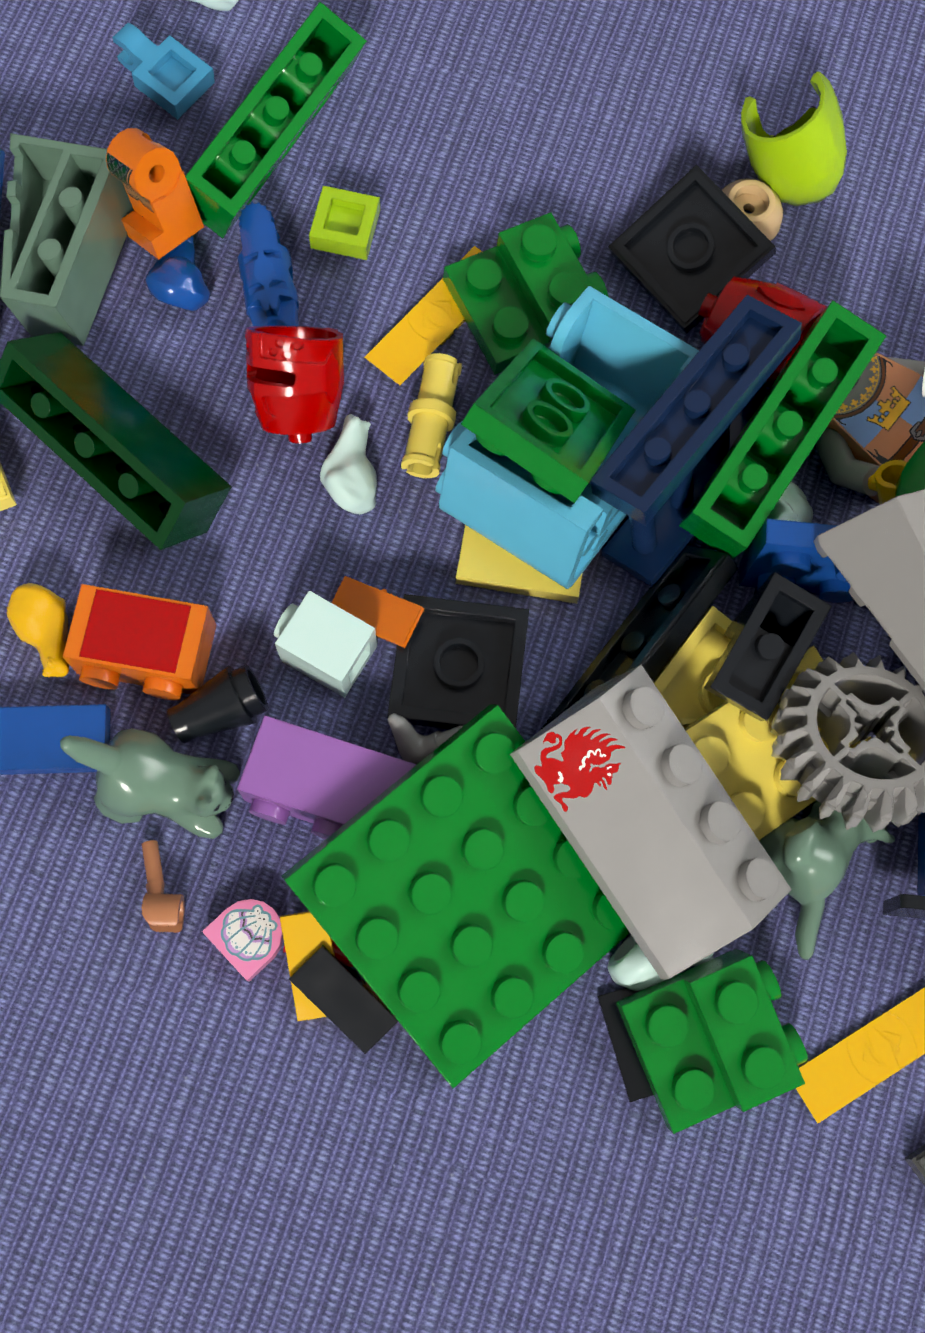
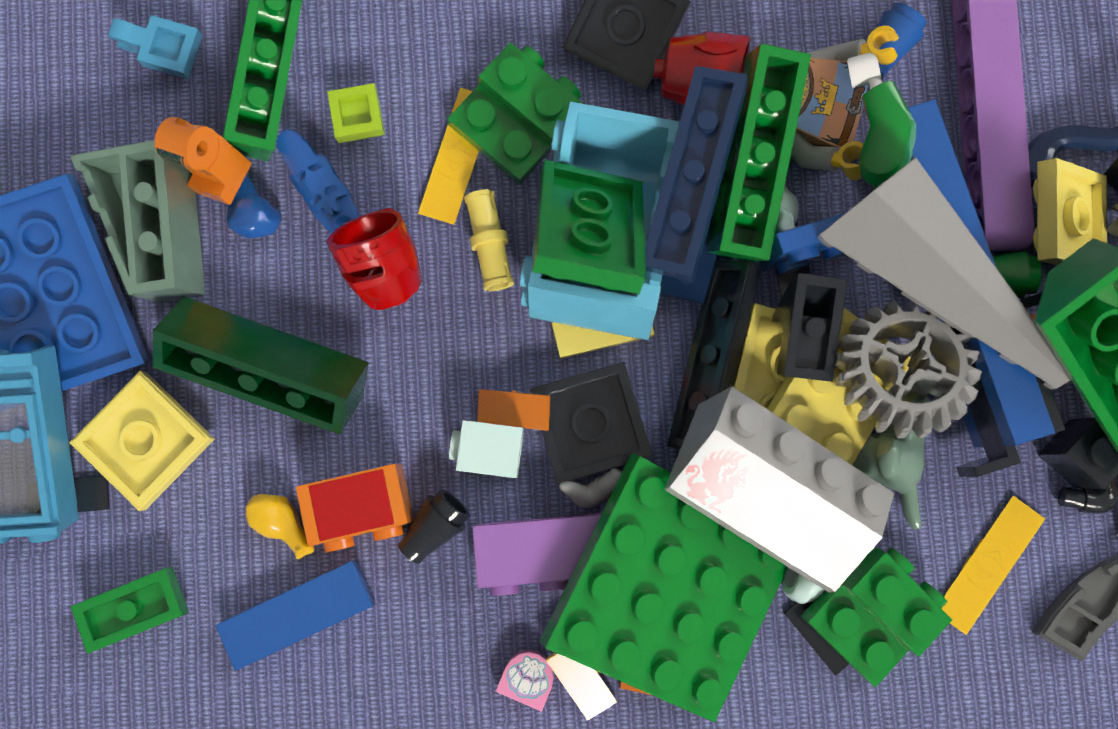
camera: 20 degrees left, 10 degrees up
(146, 776) = (407, 600): sand green animal -> none
(160, 910) = (459, 687): nougat hand -> none
(343, 999) = (611, 695): black window -> none
(348, 472) = (447, 310): light aqua animal -> none

